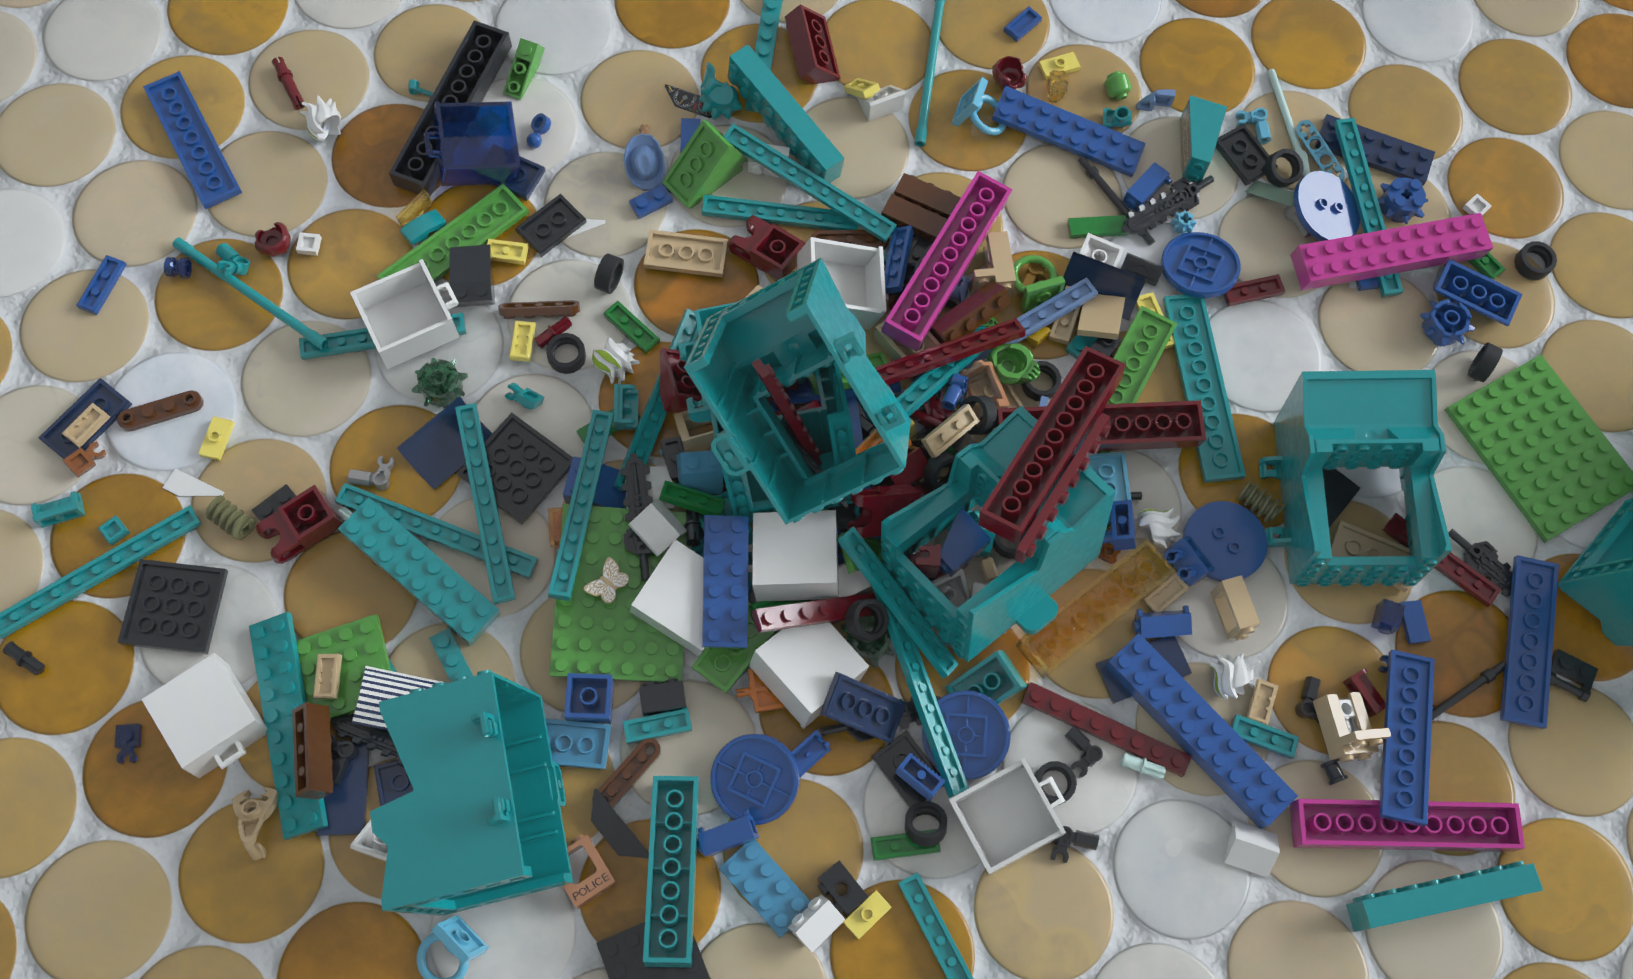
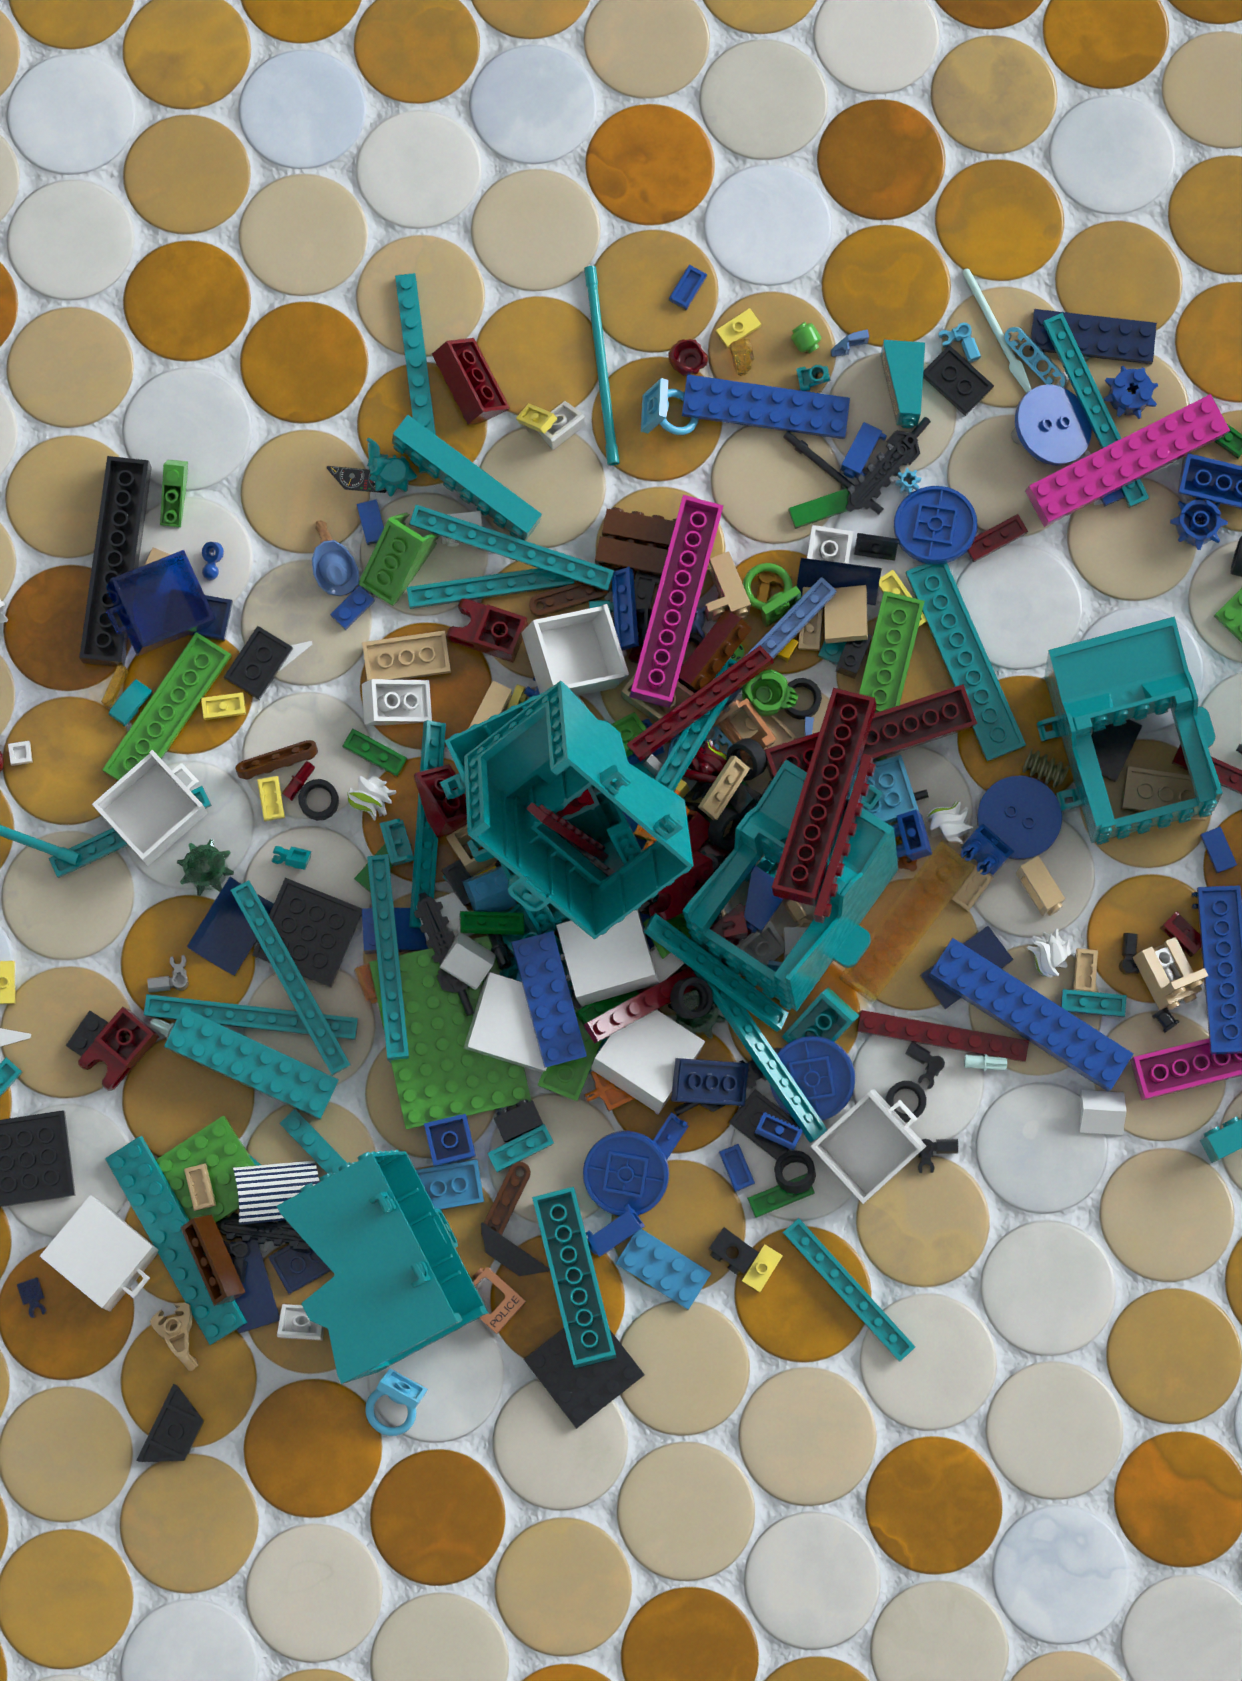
camera: 10 degrees left, 10 degrees up
(214, 918) = (173, 1430): none -> black wing
(230, 518) = (49, 1061): olive piece -> none
(414, 88) = (66, 546): teal hand -> none
(472, 275) = (198, 742): black slope -> none
(608, 273) = (336, 704): black tyre -> none
(608, 583) = (436, 1028): animal -> none
(664, 287) = (396, 701): none -> white slope
(816, 923) = (717, 1288): white brick -> none
(867, 804) = (736, 1167): none -> blue tile
(955, 392) = (720, 734): blue bar -> none
(1163, 623) = (974, 919): blue brick -> none
(1271, 193) = (992, 422): sand green sticker -> none
(1295, 162) = (1014, 392): black tyre -> none
(1388, 616) = (1191, 853): clear blue brick -> none
(1477, 205) = (1210, 377): white plate -> none

